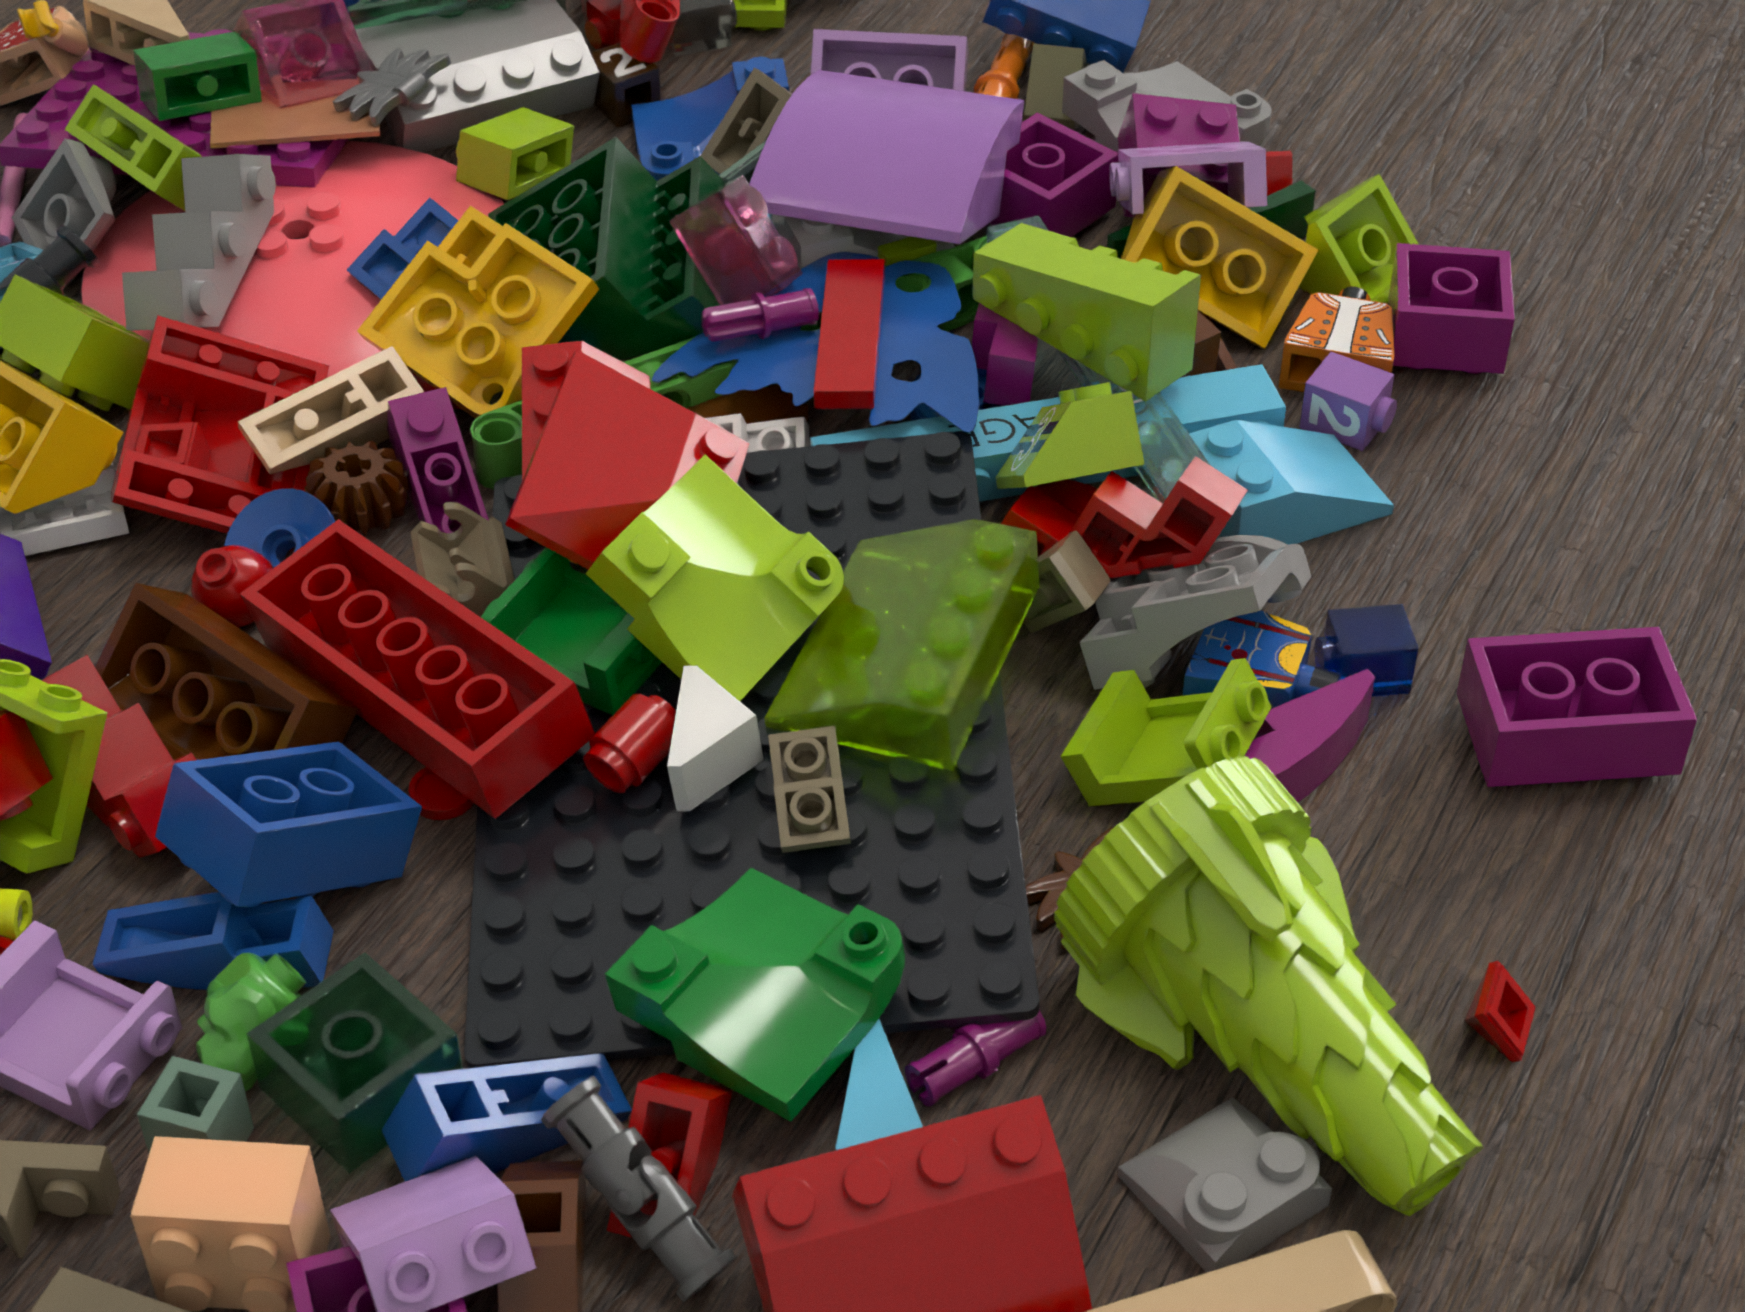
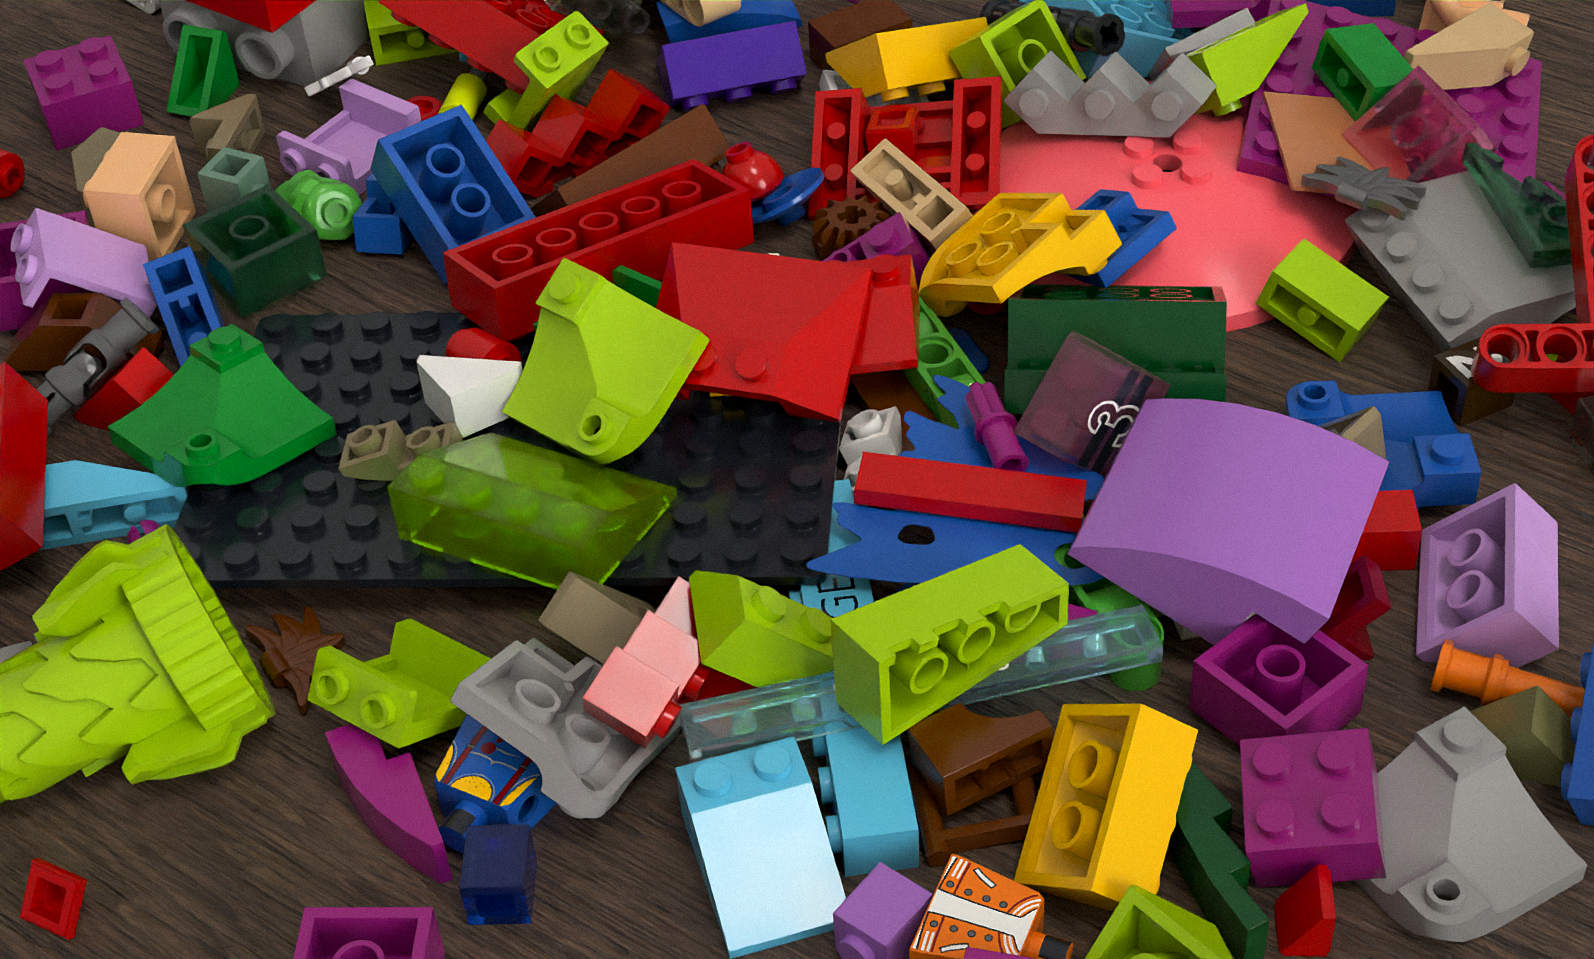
camera: 100 degrees right, 0 degrees up
(1244, 167) = (1205, 765): lavender panel -> none

